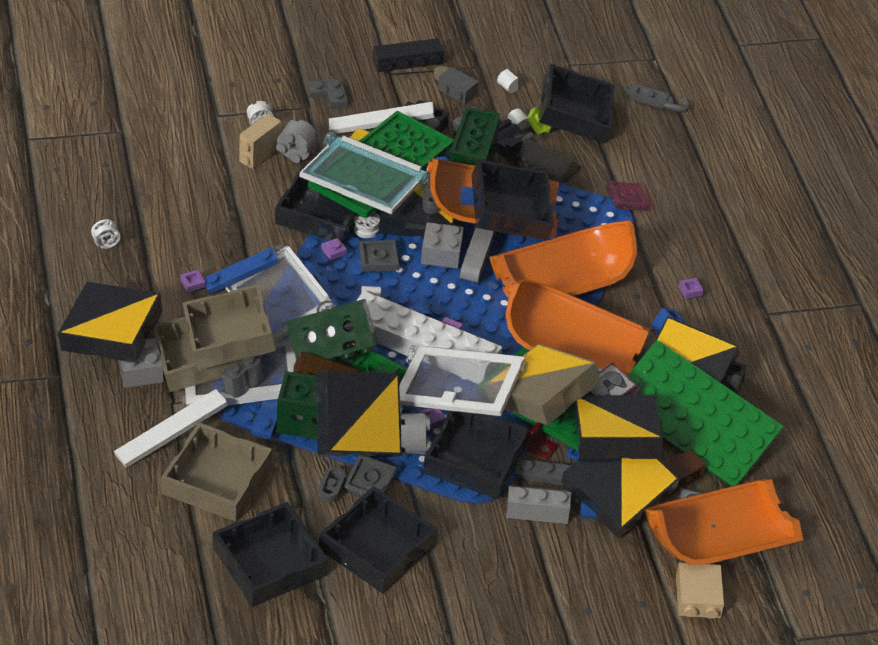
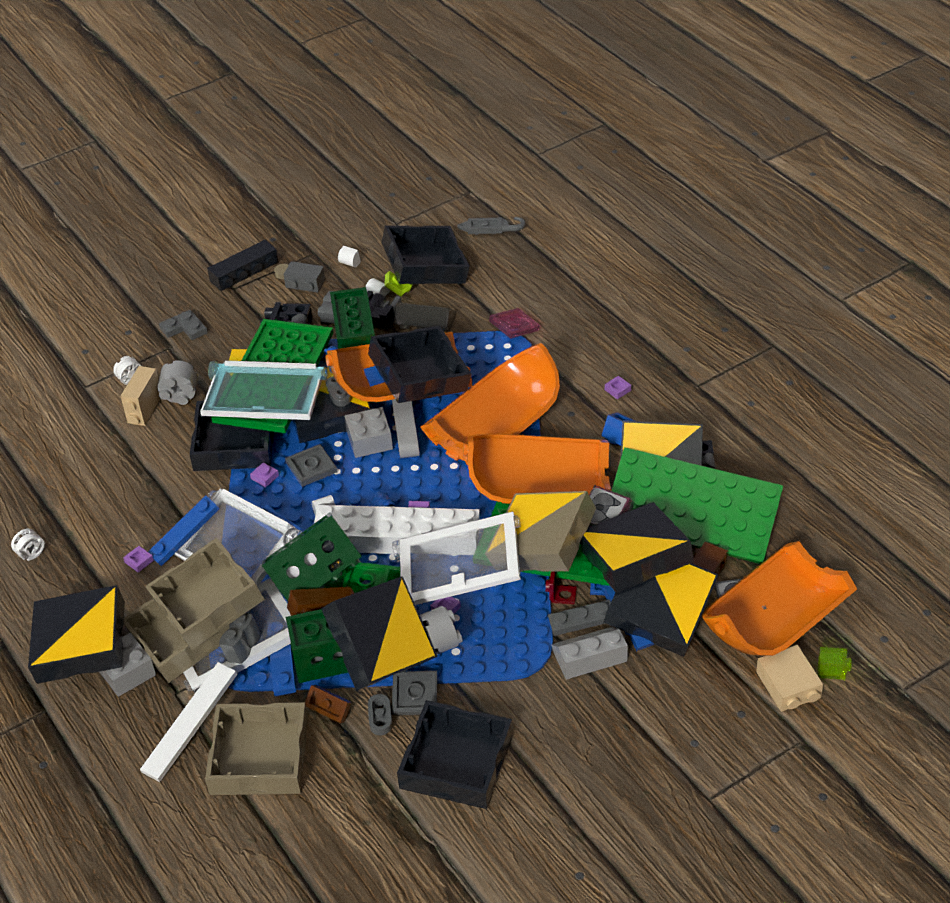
camera: 15 degrees left, 0 degrees up
(270, 554) = (354, 815): black tile -> none
(292, 458) = (327, 703): none -> reddish brown plate
(366, 227) = (285, 442): white wheel -> none
(373, 119) = (245, 333): white tile -> none
(476, 452) = (507, 625): black tile -> none
(746, 593) = (833, 663): none -> clear neon green brick

